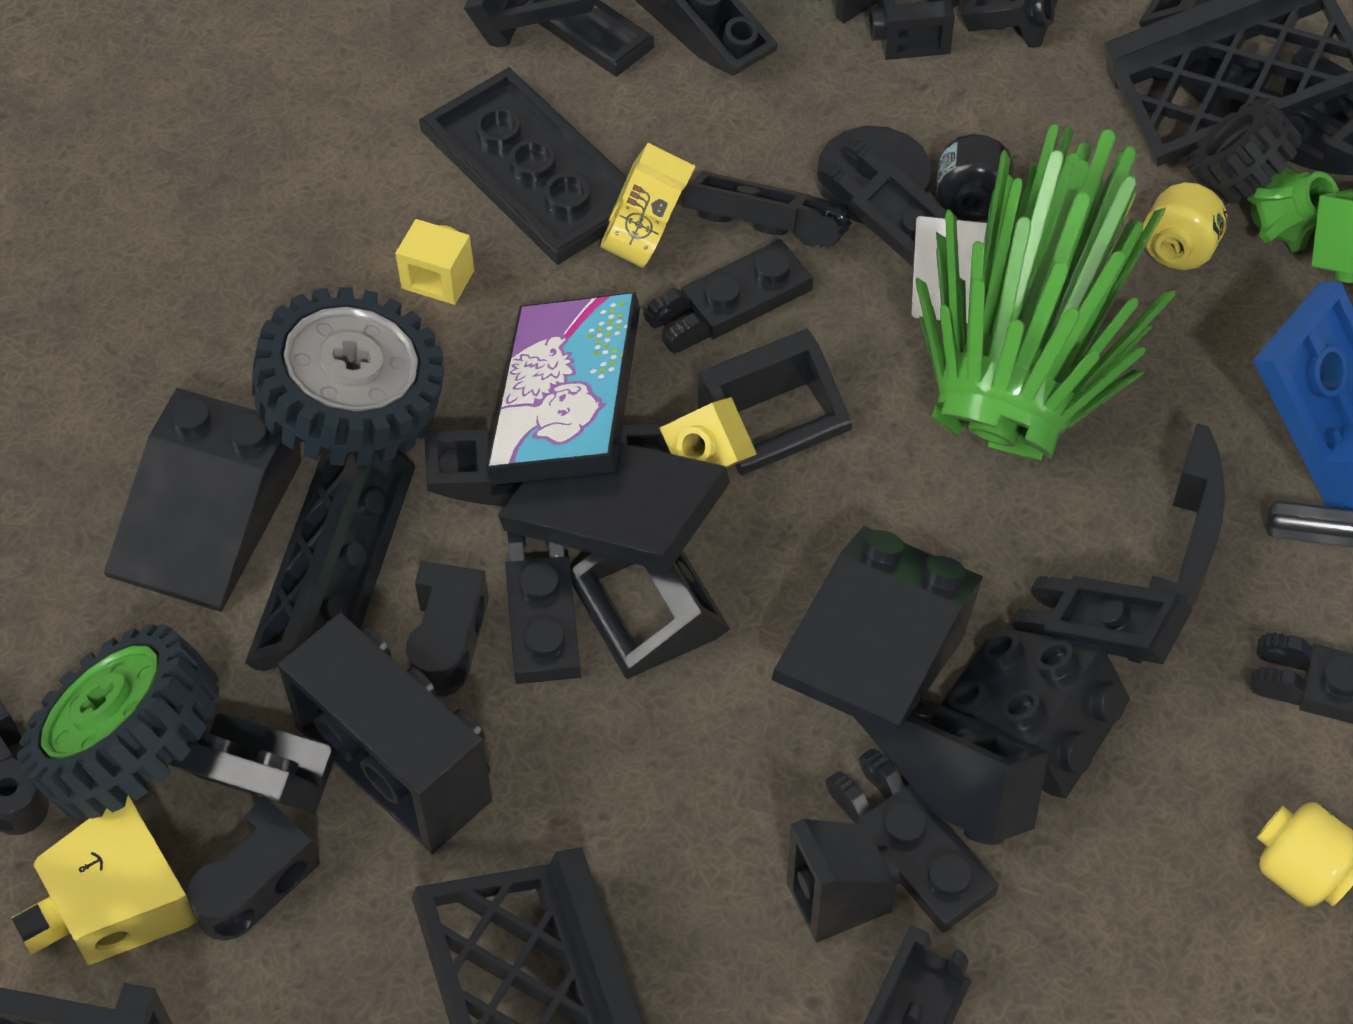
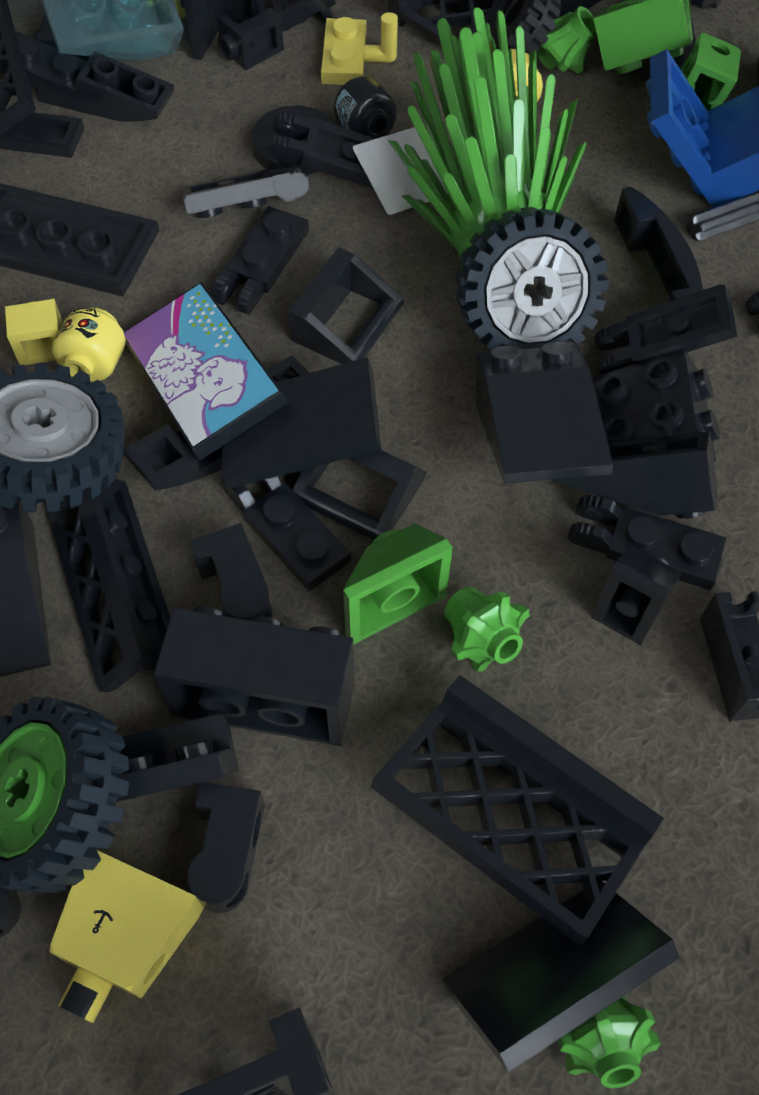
camera: 35 degrees left, 5 degrees up
(476, 302) = (89, 343): none -> light yellow head
(586, 718) = (396, 579): none -> bright green slope
(645, 204) = (163, 222): light yellow leg -> none
(652, 820) = (485, 627): none -> bright green rock
(719, 427) = (325, 336): light yellow plate -> none
(1003, 442) = (508, 258): none -> wheel
(1024, 88) = (347, 49): none -> light yellow plate

